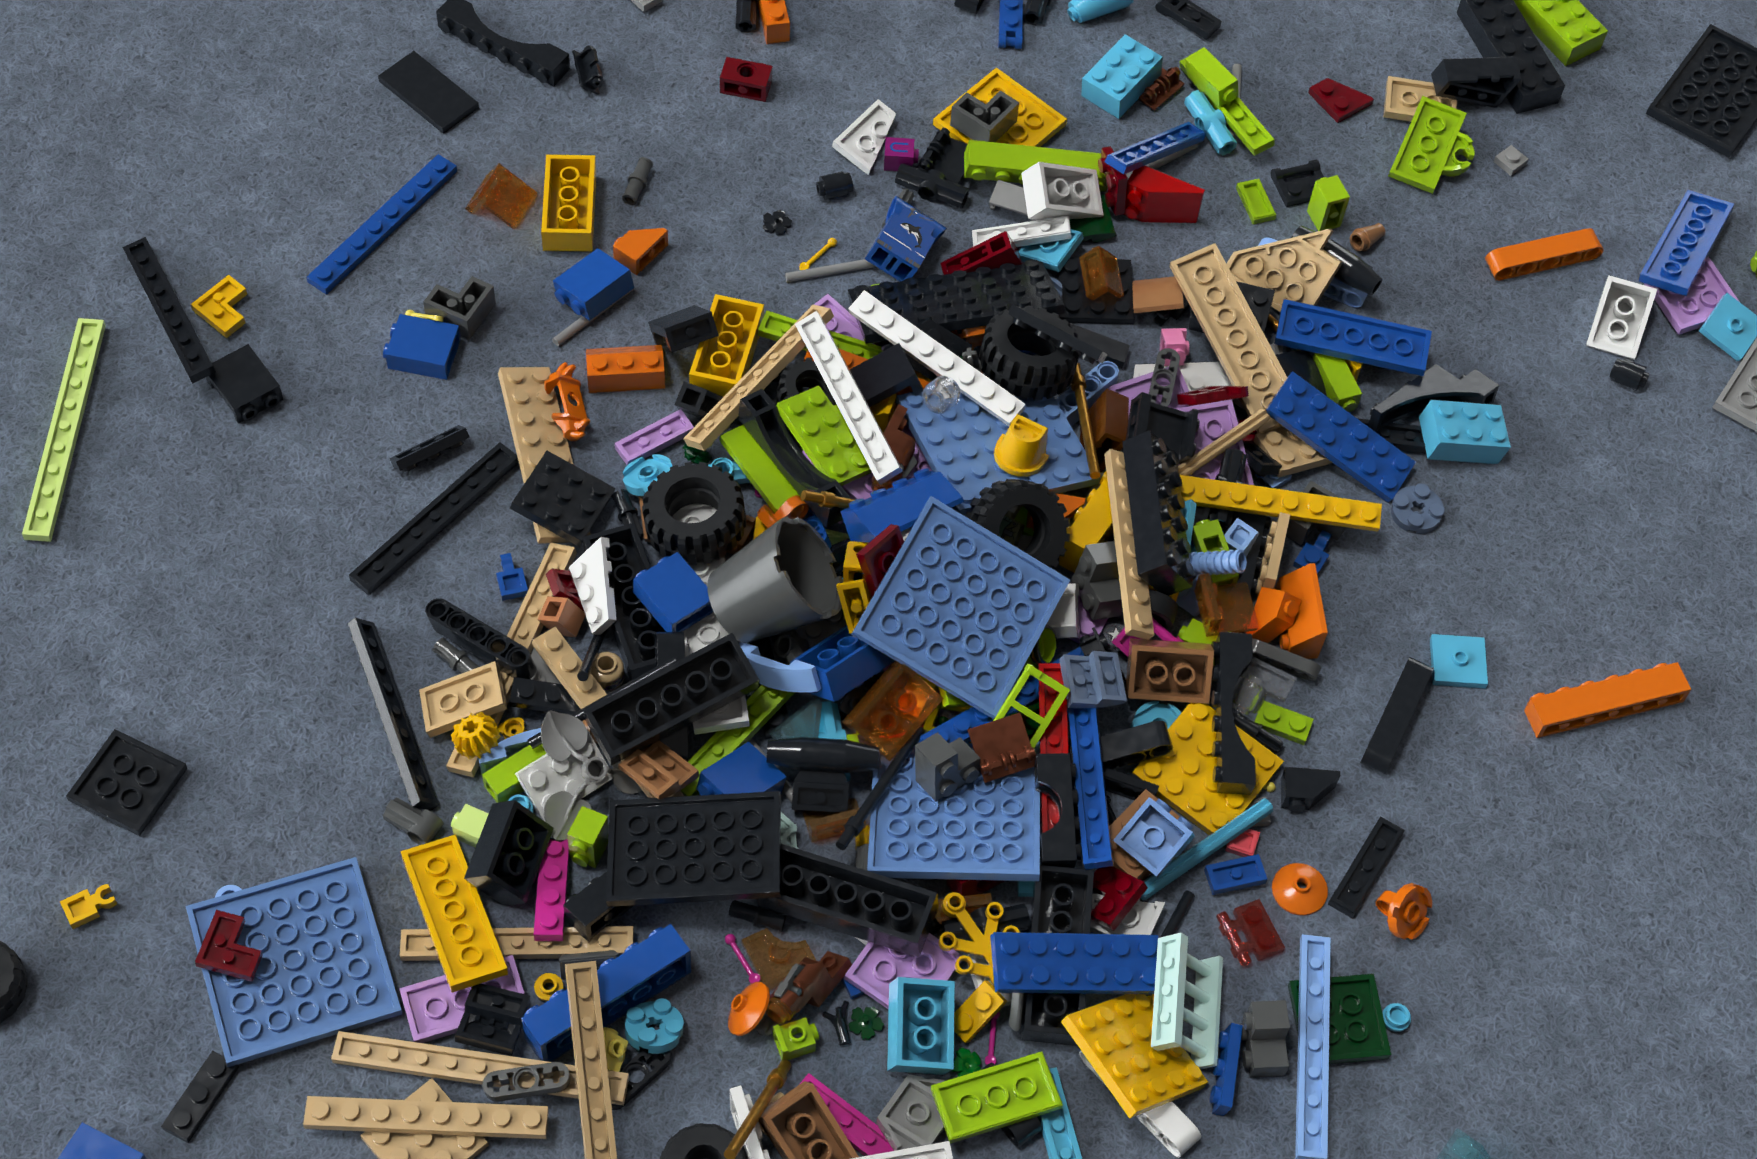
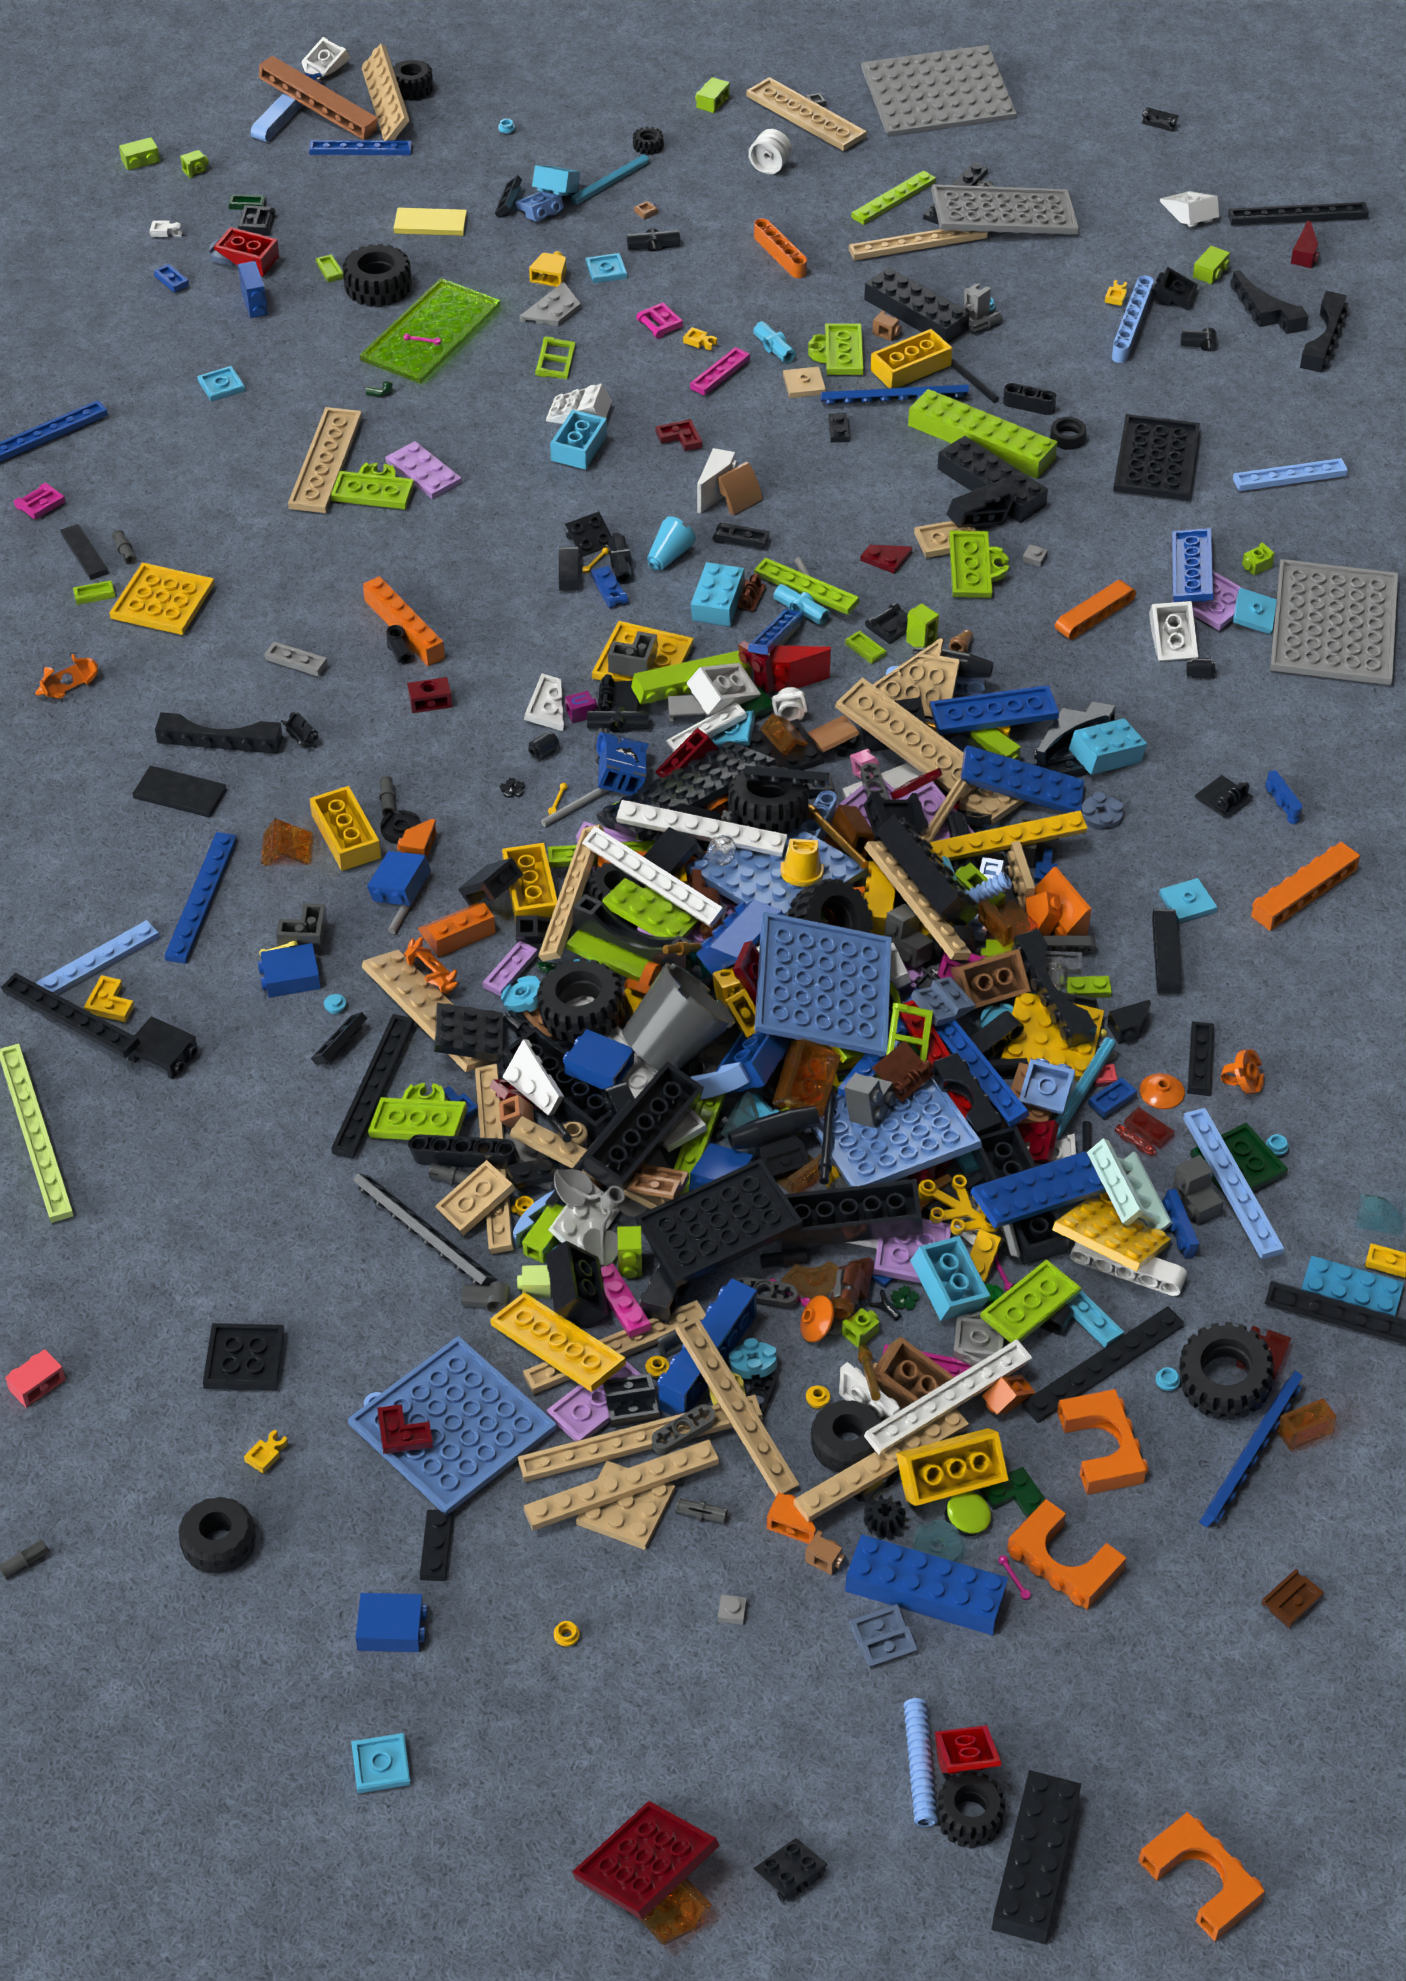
camera: 20 degrees left, 10 degrees down
(238, 254) = (99, 958): none -> light blue plate
(449, 404) = (335, 1003): none -> medium azure plate
(459, 574) = (417, 1114): none -> lime plate
(475, 735) = (503, 1215): yellow gear -> none
(637, 216) = (391, 830): none -> black tile
(702, 1111) = (817, 1402): none -> yellow plate
(734, 953) = (770, 1300): none -> dark grey beam
(1129, 241) = (790, 703): none -> white piece
(1211, 77) = (787, 570): lime brick -> none
(1572, 546) = (1225, 795): none -> black hinge
(1626, 35) = (1071, 424): none -> black tyre
(1641, 575) = (1284, 796): none -> blue plate

